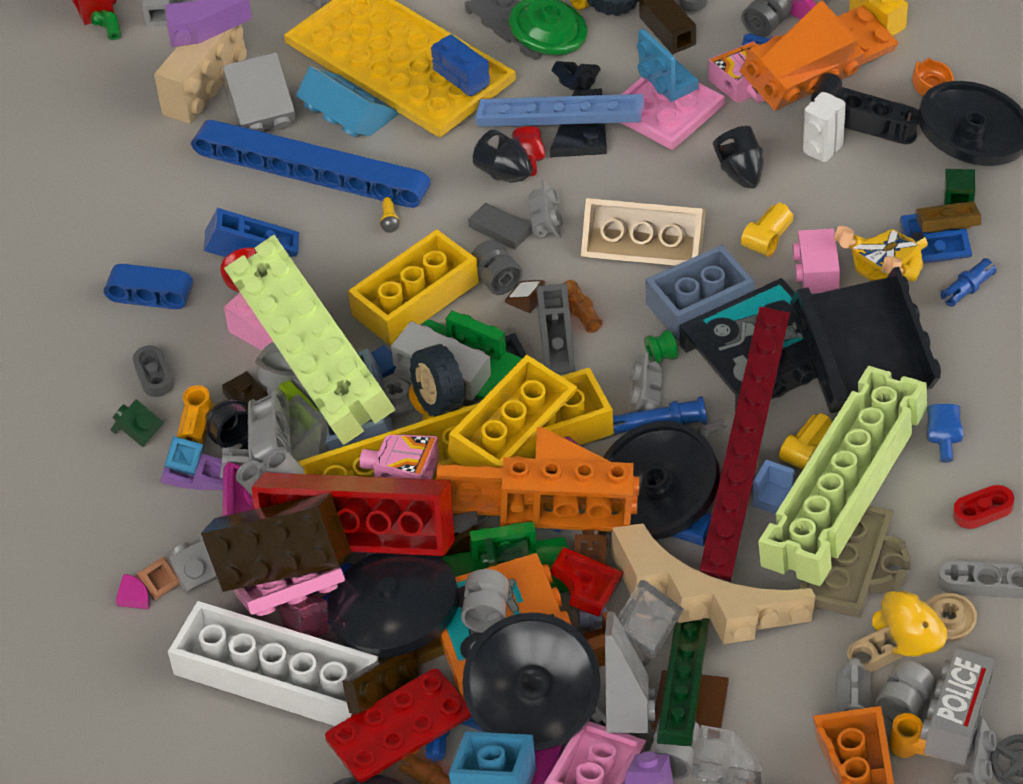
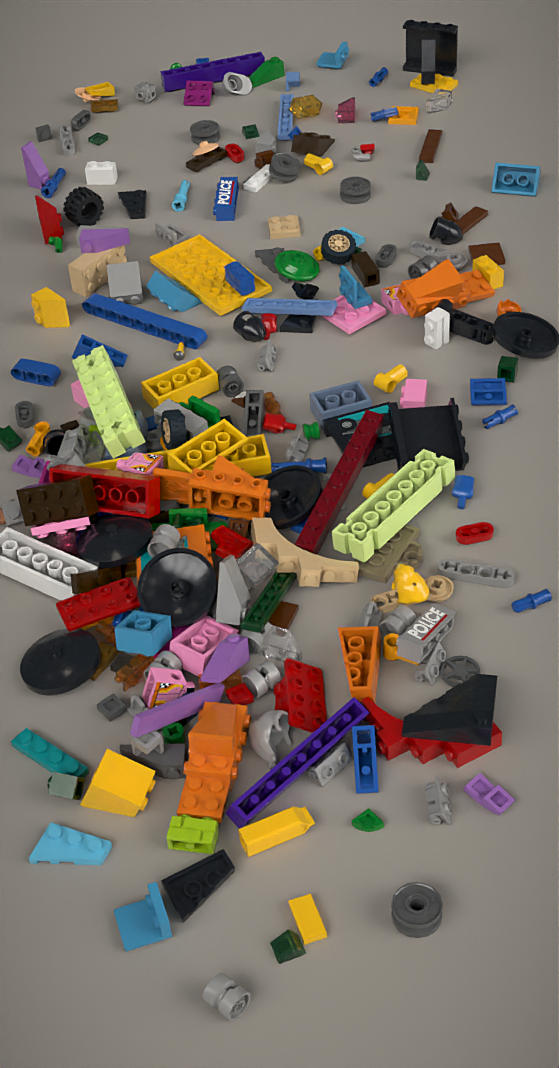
camera: 10 degrees right, 5 degrees down
(140, 160) = (49, 309): none -> yellow slope
(183, 456) = (25, 456): dark azure tile -> none
(500, 225) = (240, 362): dark grey tile -> none
(597, 339) = (276, 423): none -> red piece
(641, 232) = (317, 370): tan slope -> none
(742, 158) = (385, 342): black helmet -> none
(772, 486) = (350, 504): medium blue panel -> none
(880, 254) = (462, 394): torso -> none
(948, 216) = (503, 381): pearl gold plate -> none

